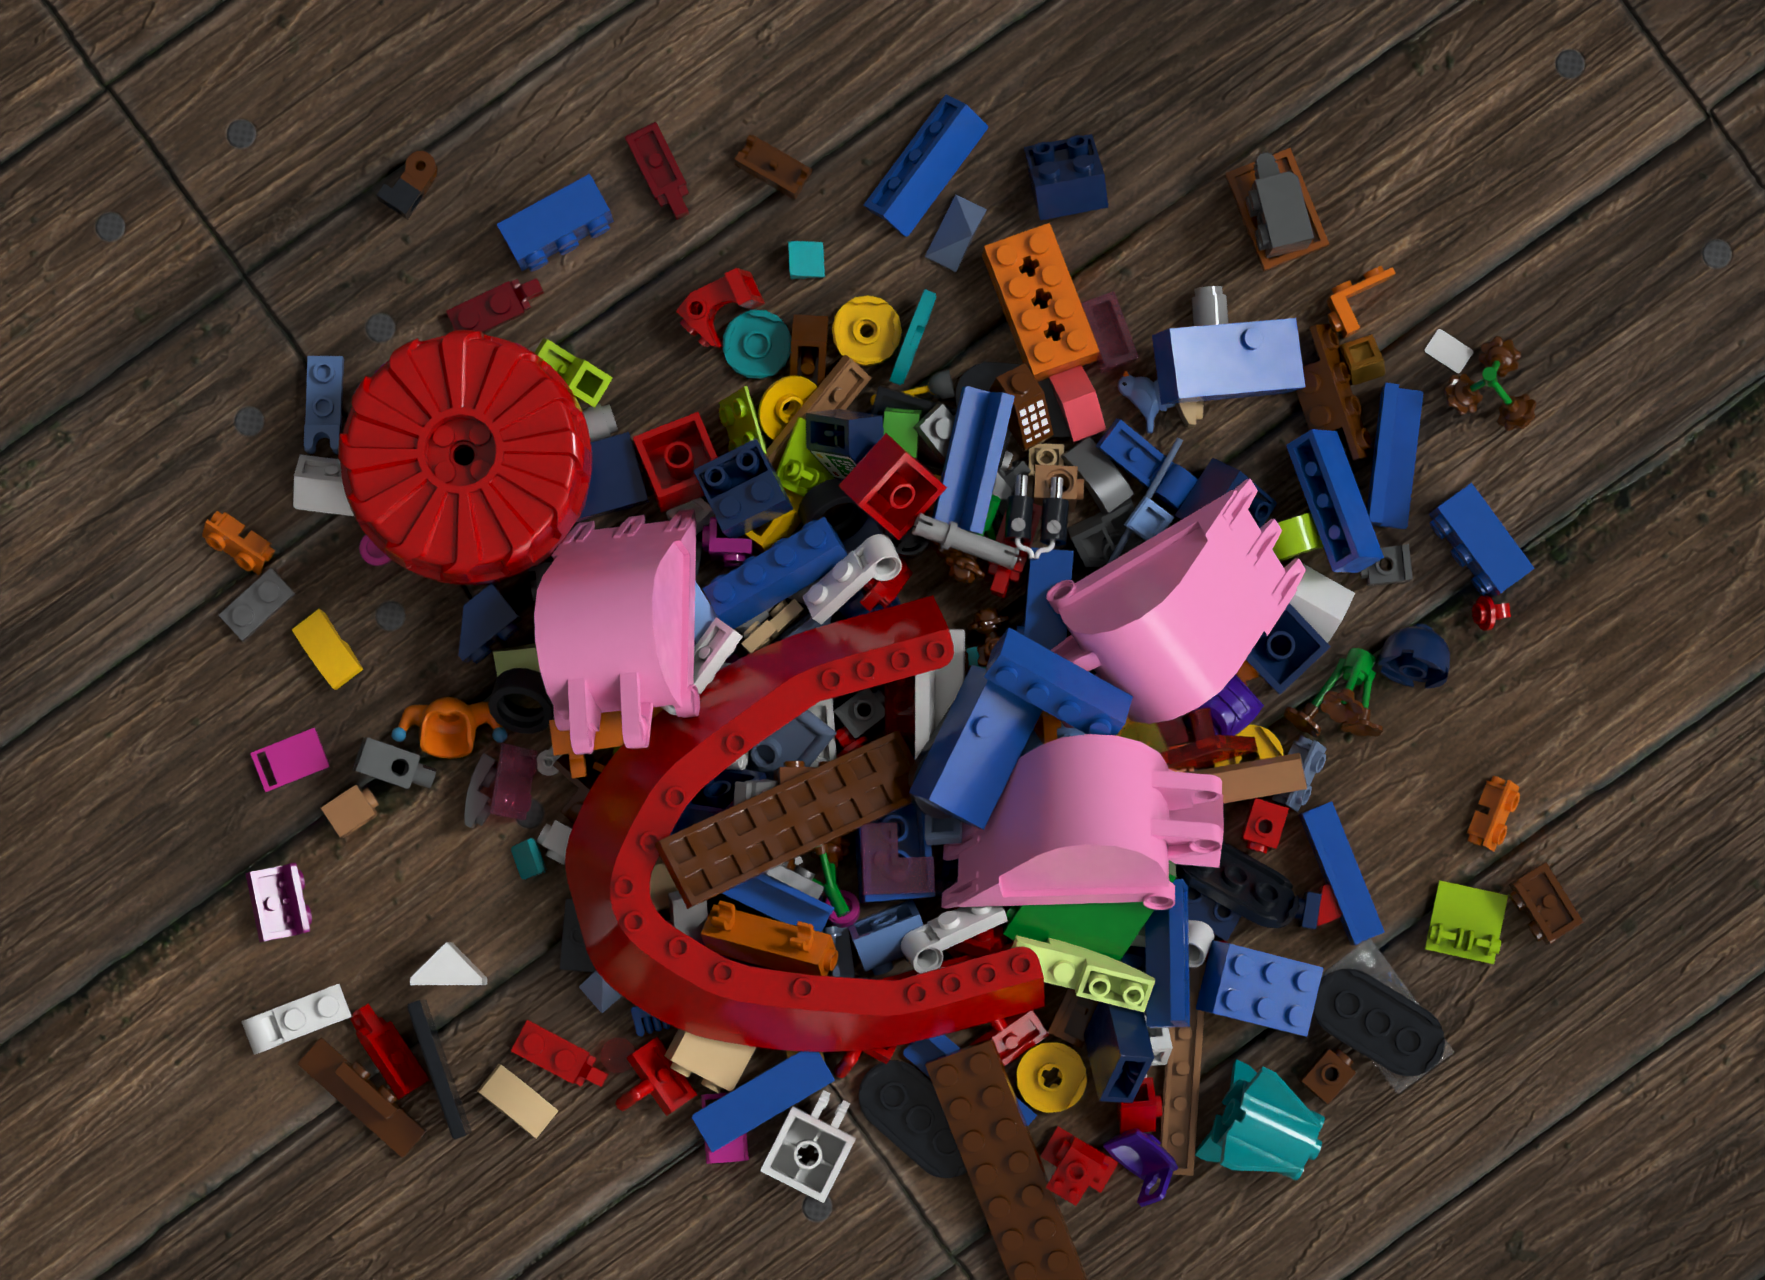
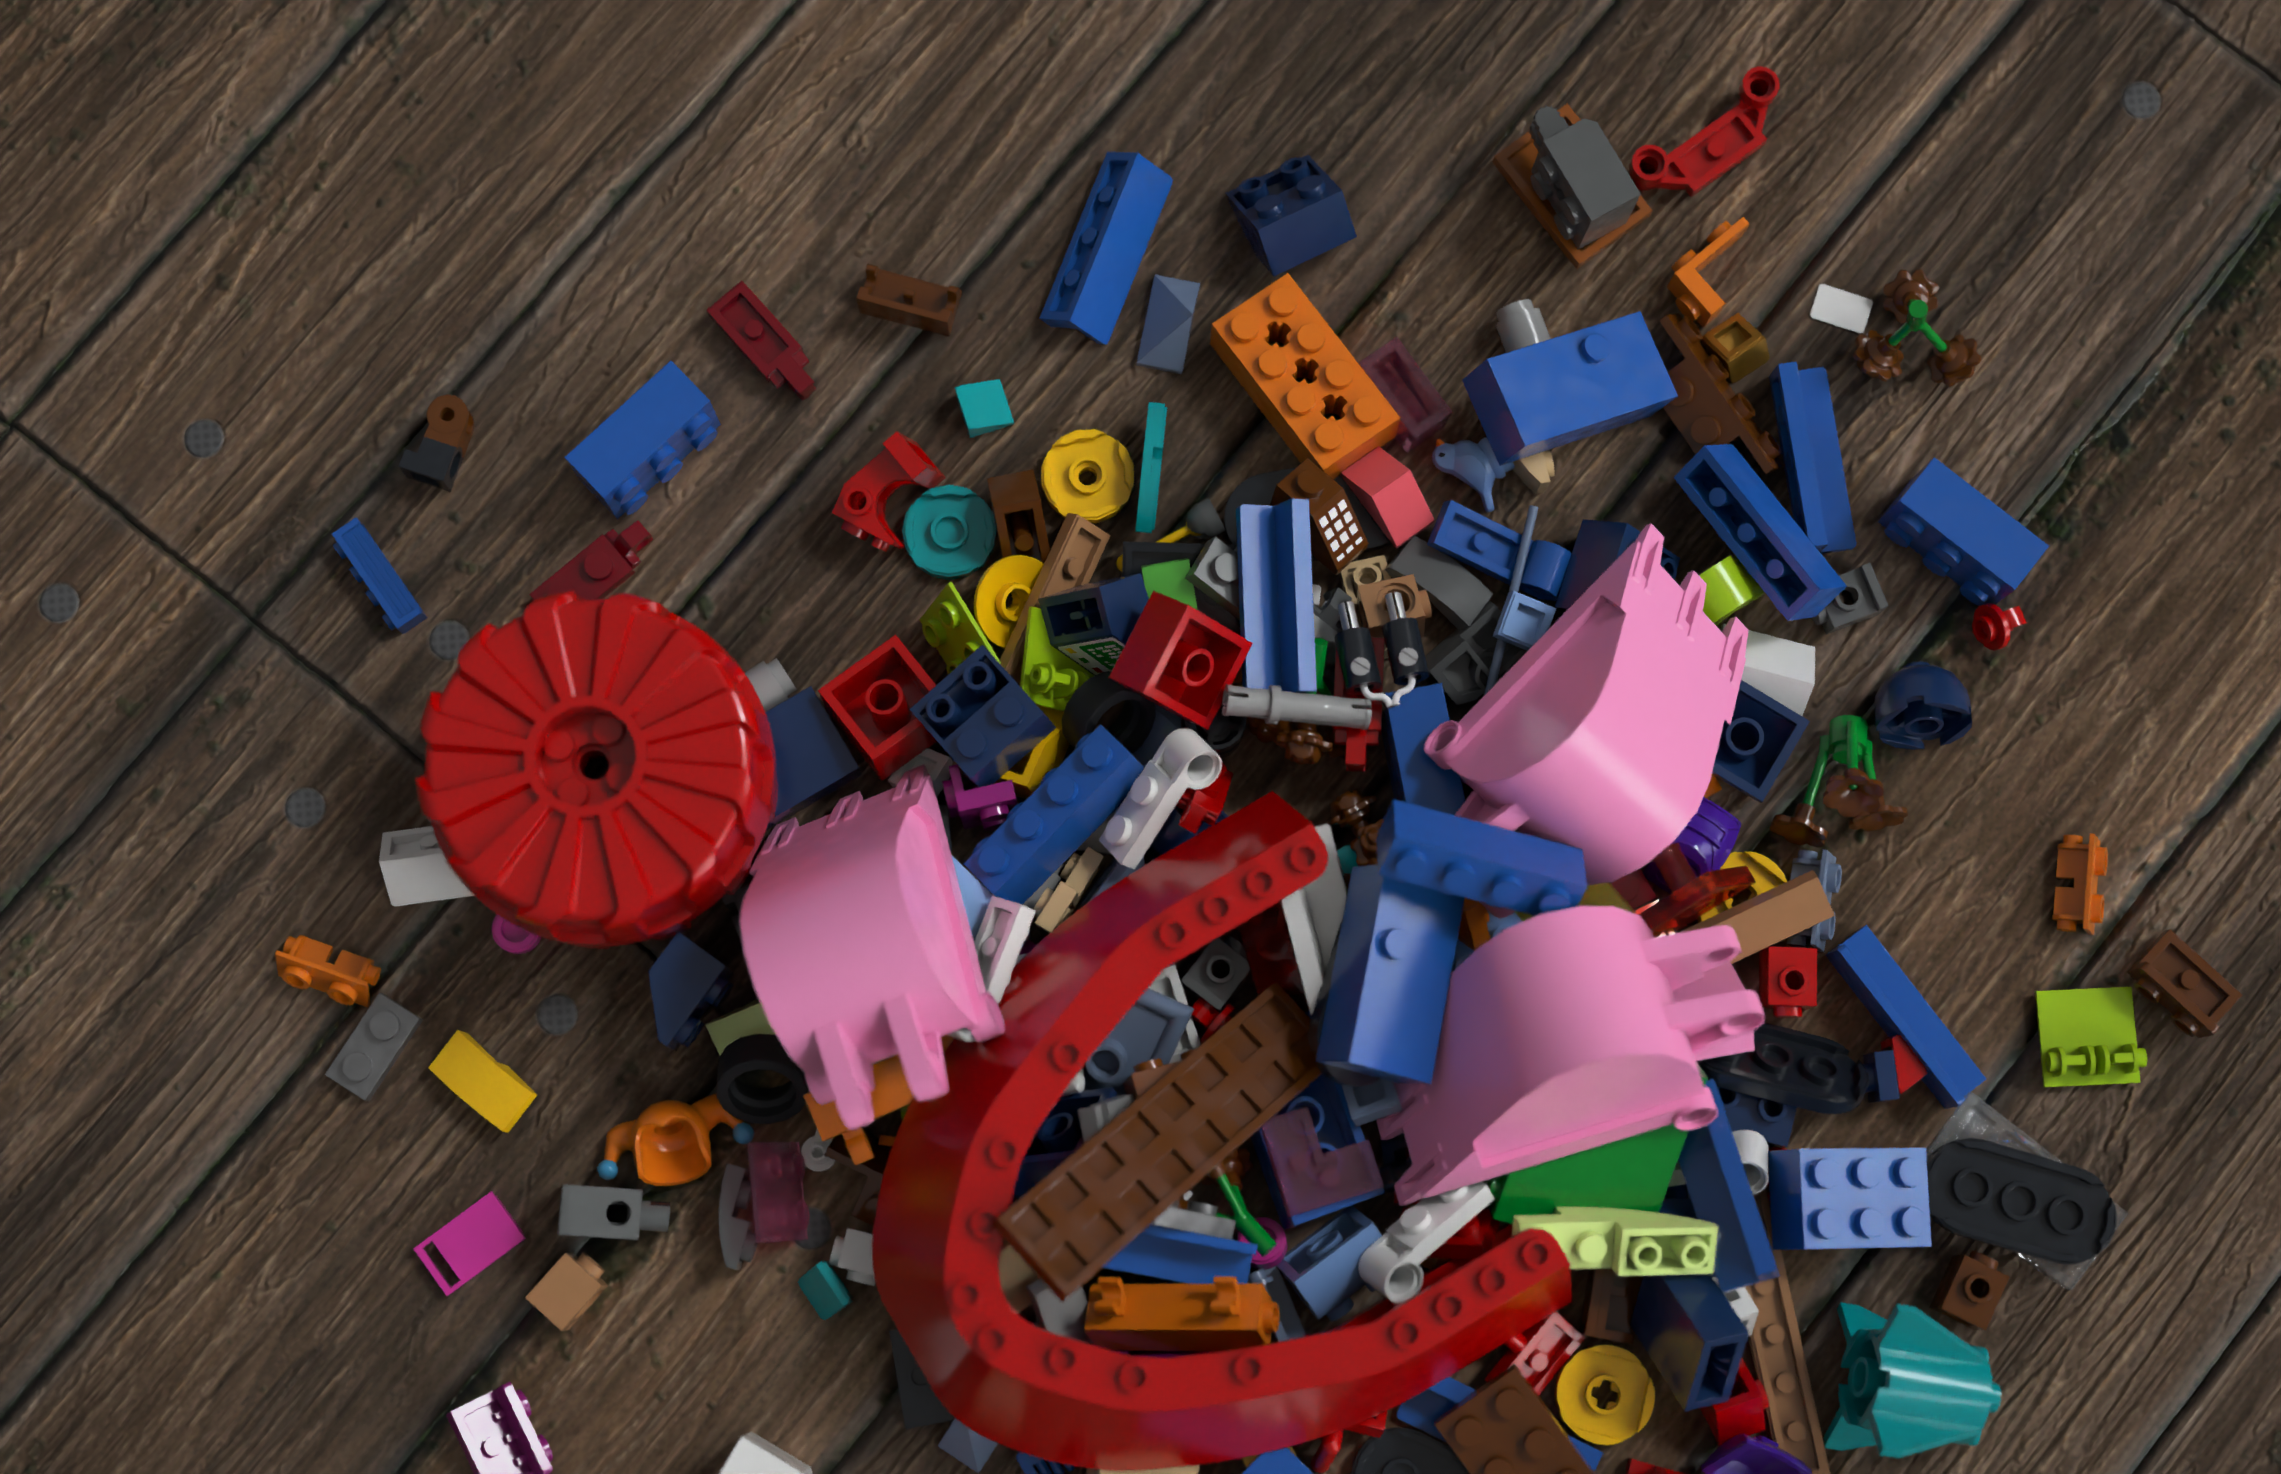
camera: 15 degrees left, 5 degrees down
(323, 401) = (394, 752): medium blue plate -> none
(342, 268) = (379, 575): none -> blue piece
(583, 378) = (734, 629): lime brick -> none
(1389, 208) = (1715, 147): none -> red plate

